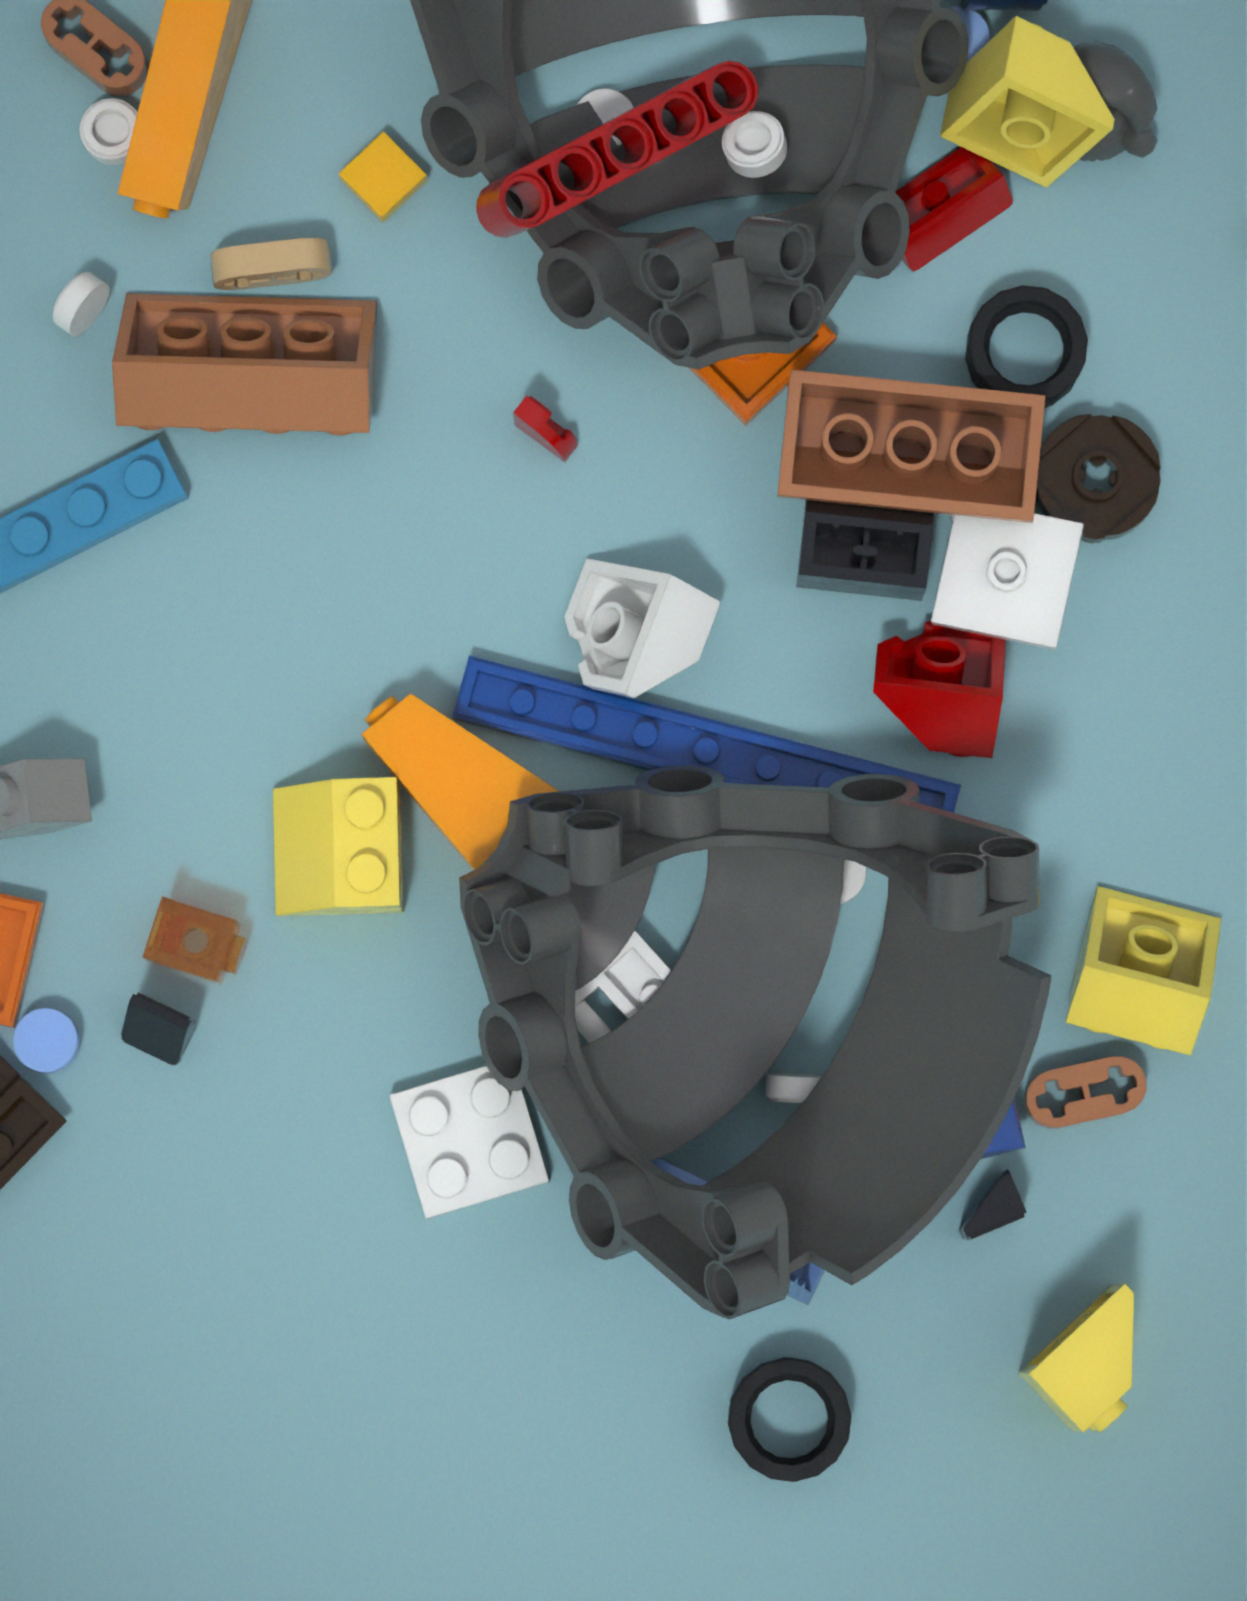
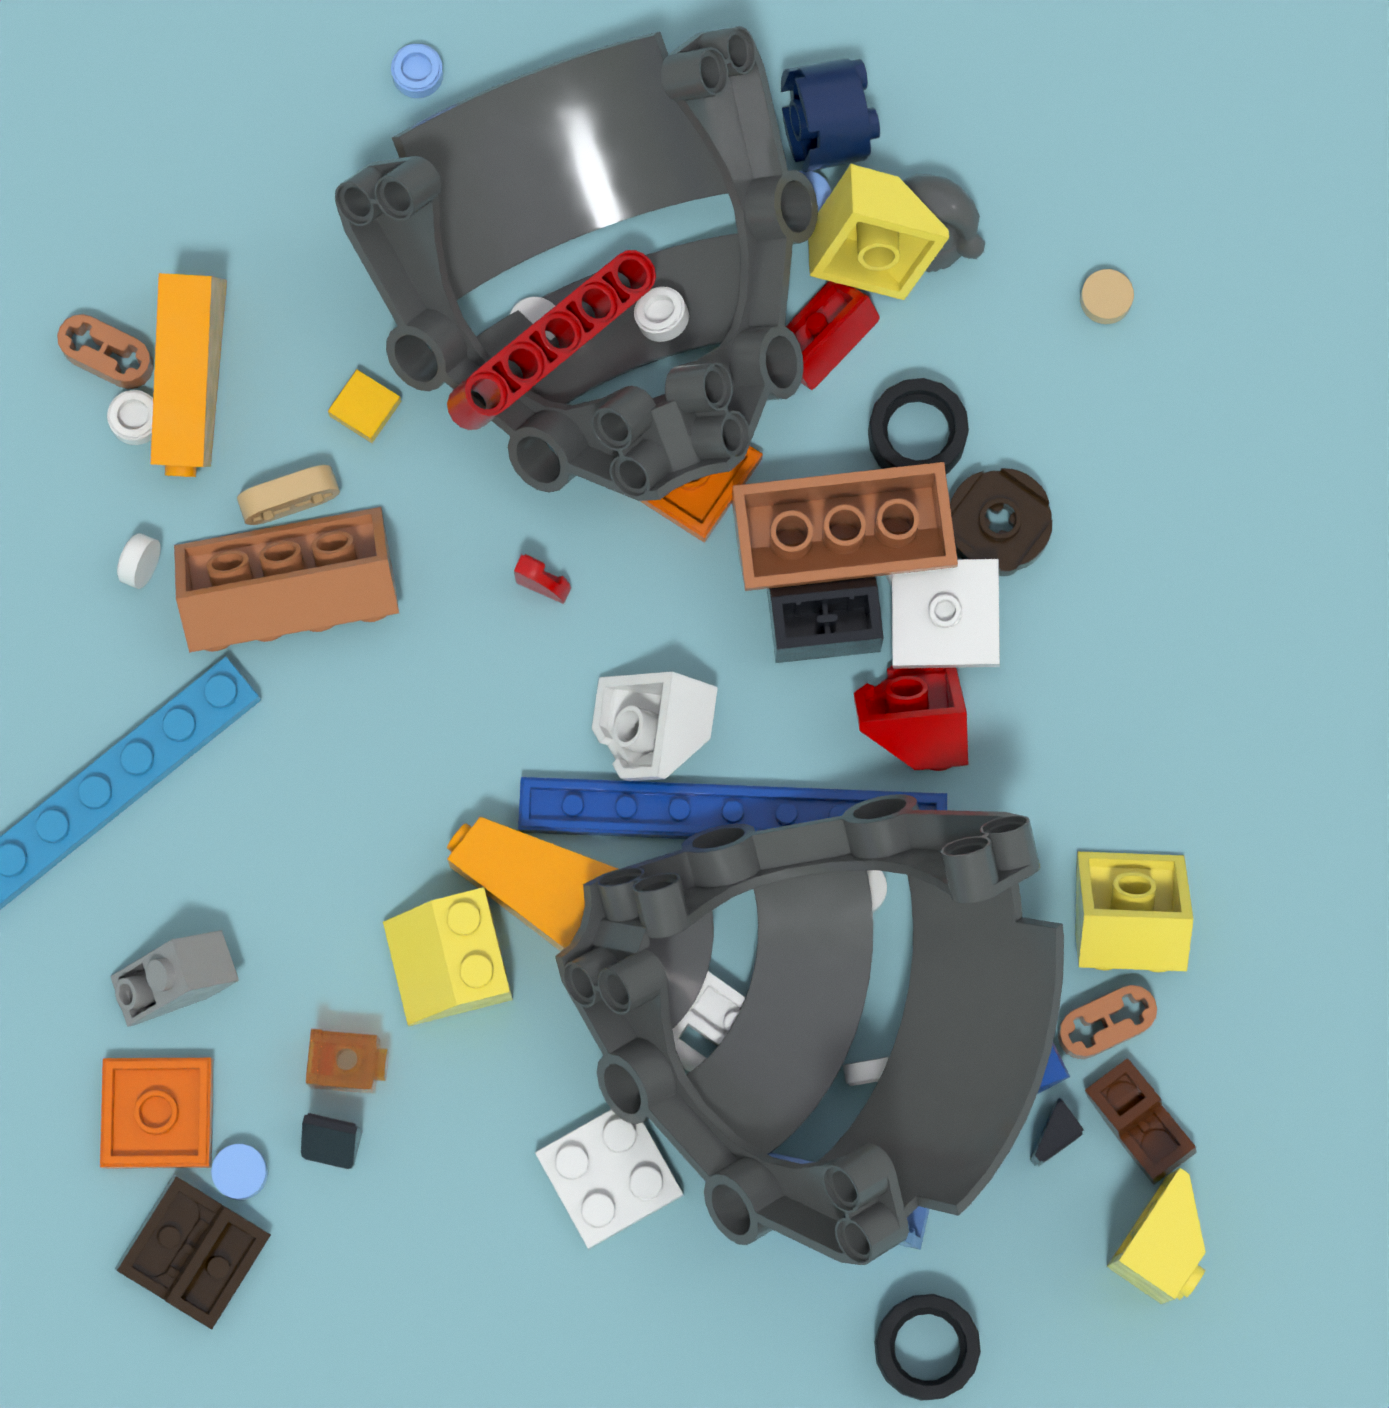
camera: 15 degrees left, 5 degrees down
(1096, 1215) = (1140, 1121): none -> reddish brown slope

